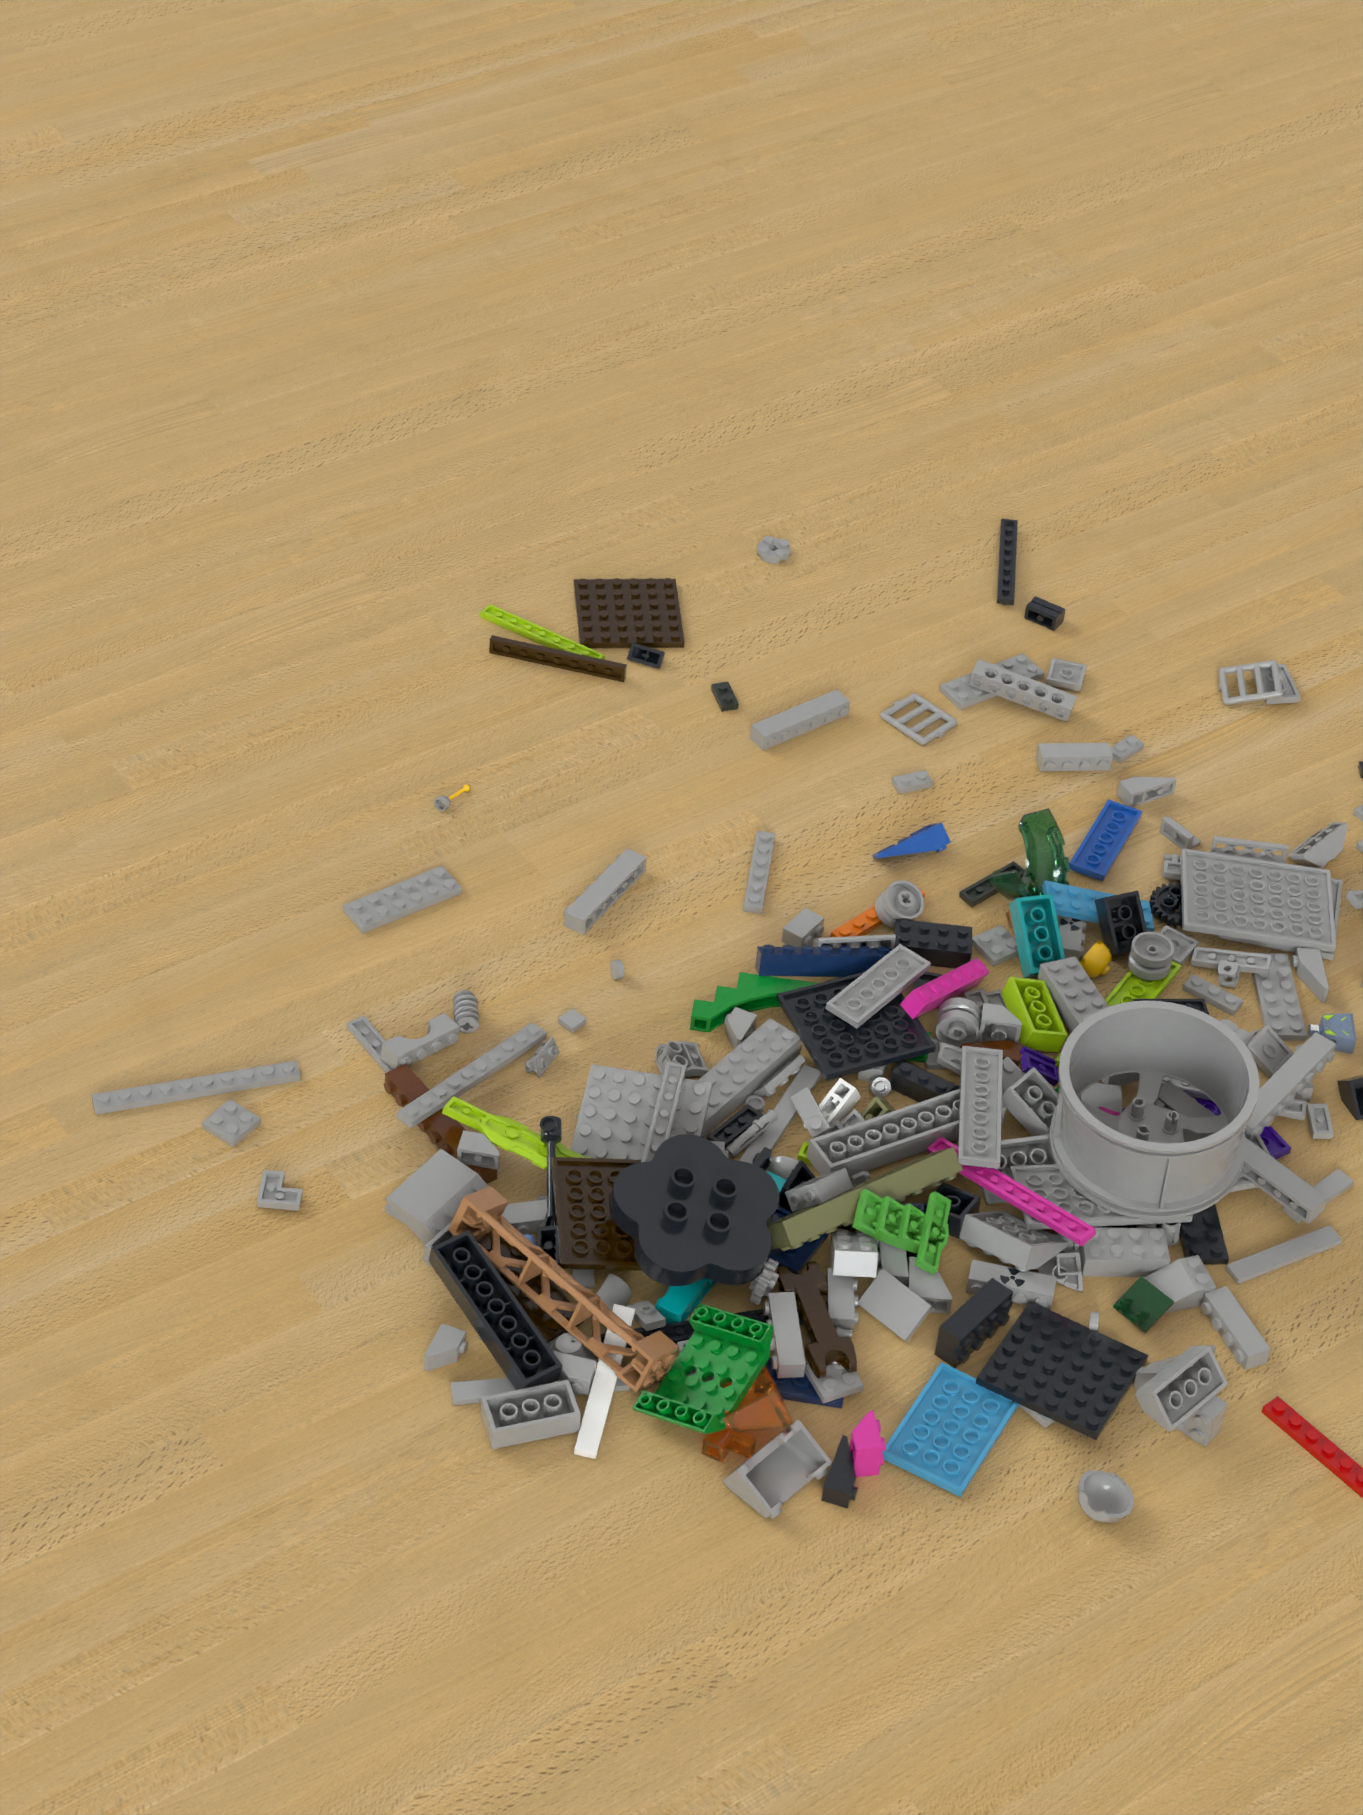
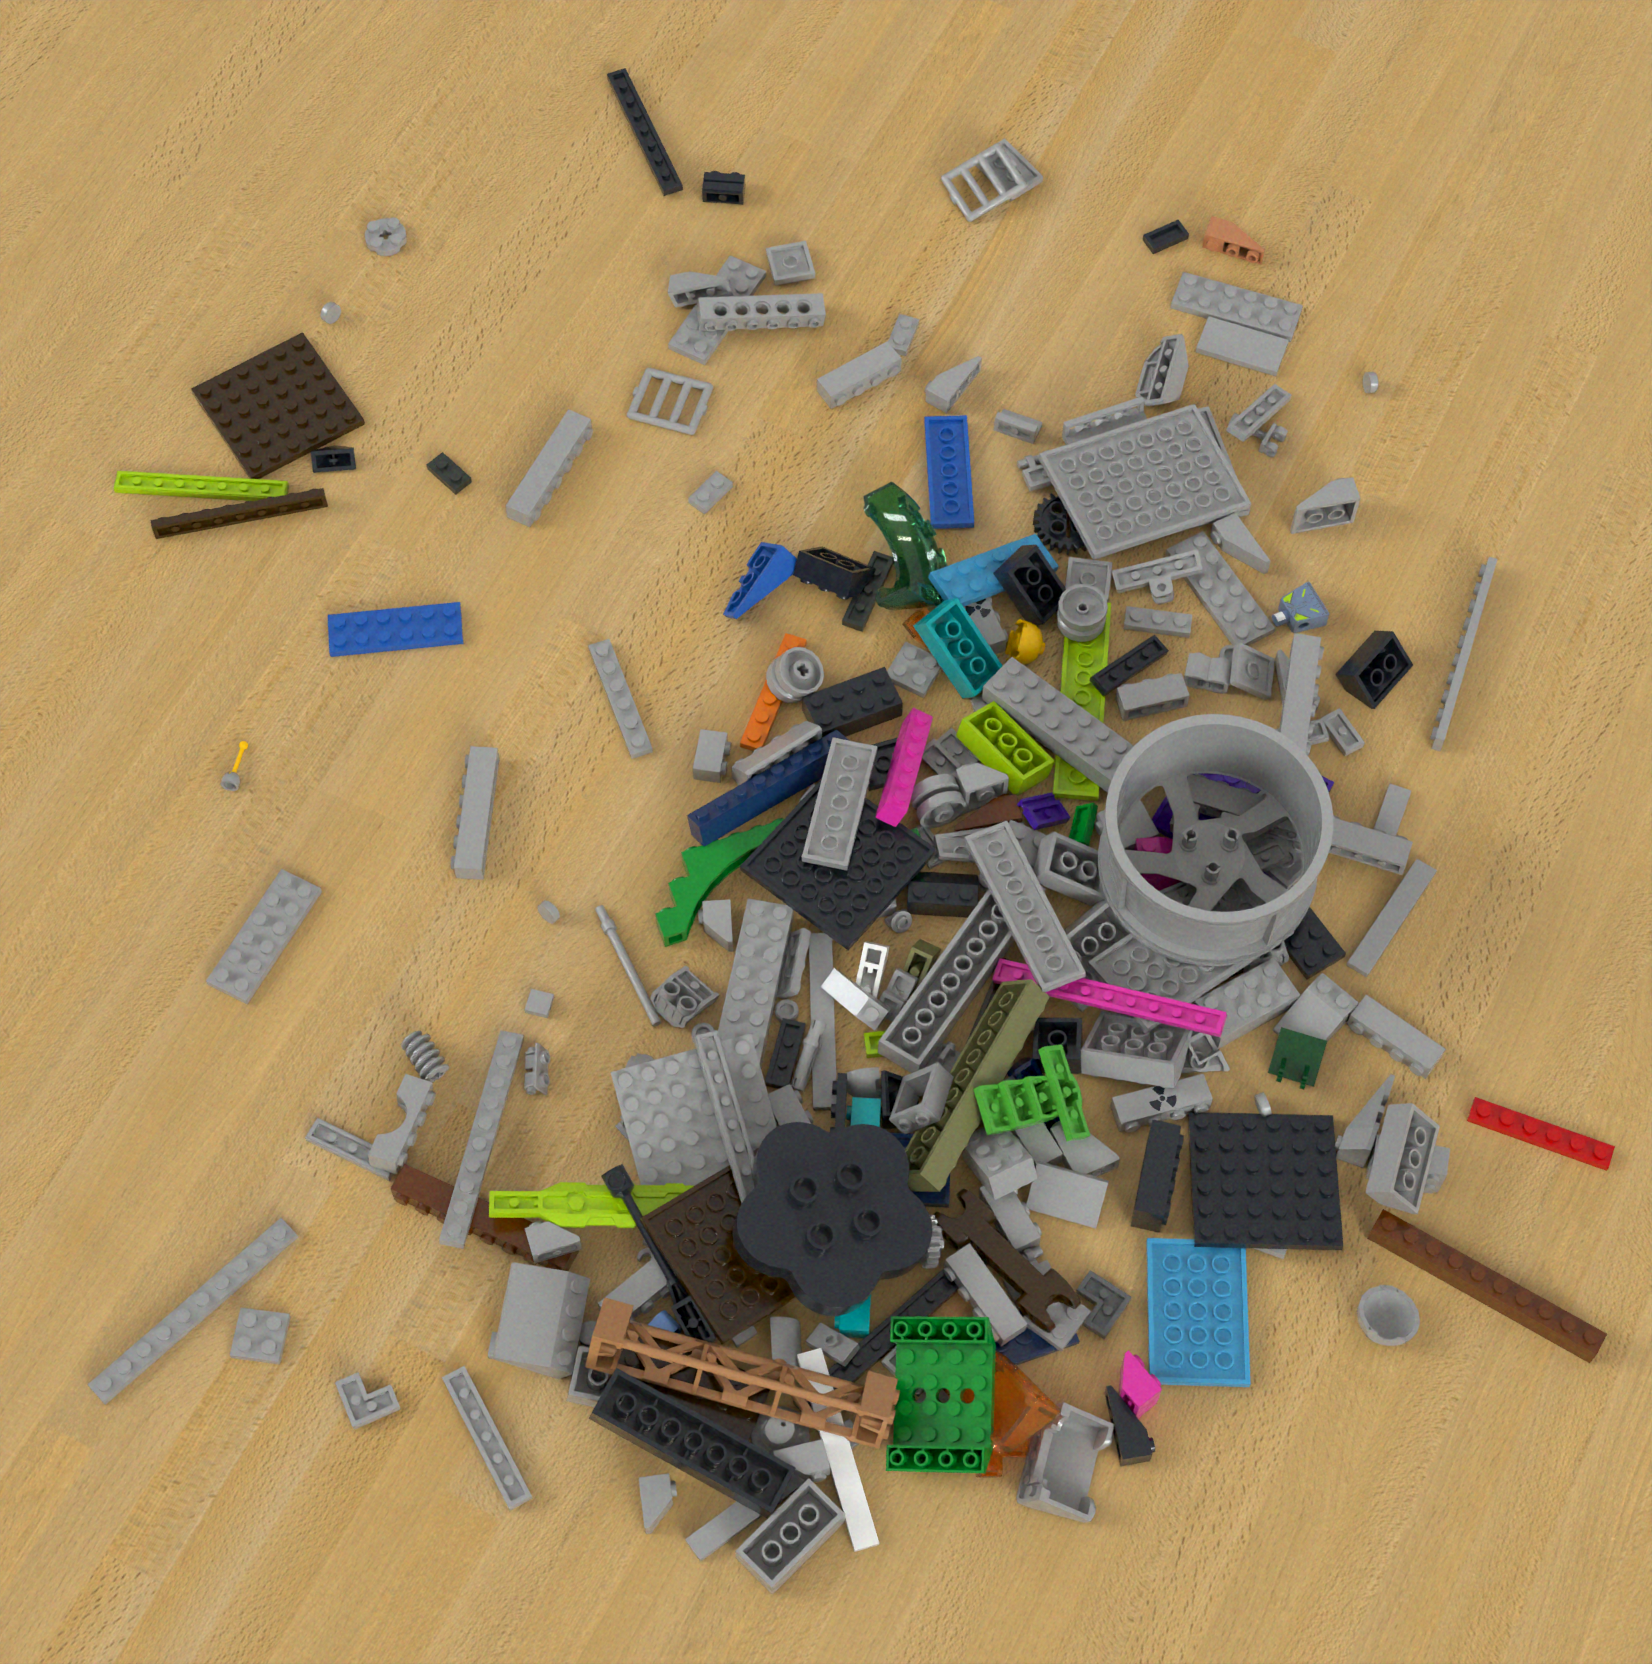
camera: 25 degrees left, 20 degrees up
(348, 1254) = (487, 1438): none -> light grey plate
(622, 767) = (395, 629): none -> blue plate
(655, 1000) = (609, 928): none -> light grey bar
(703, 575) = (330, 312): none -> light grey tile
(881, 1388) = (1109, 1303): none -> dark grey plate
(970, 858) = (832, 572): none -> black slope
(971, 653) = (689, 286): none -> light grey slope
(1205, 1521) = (1487, 1286): none -> reddish brown brick

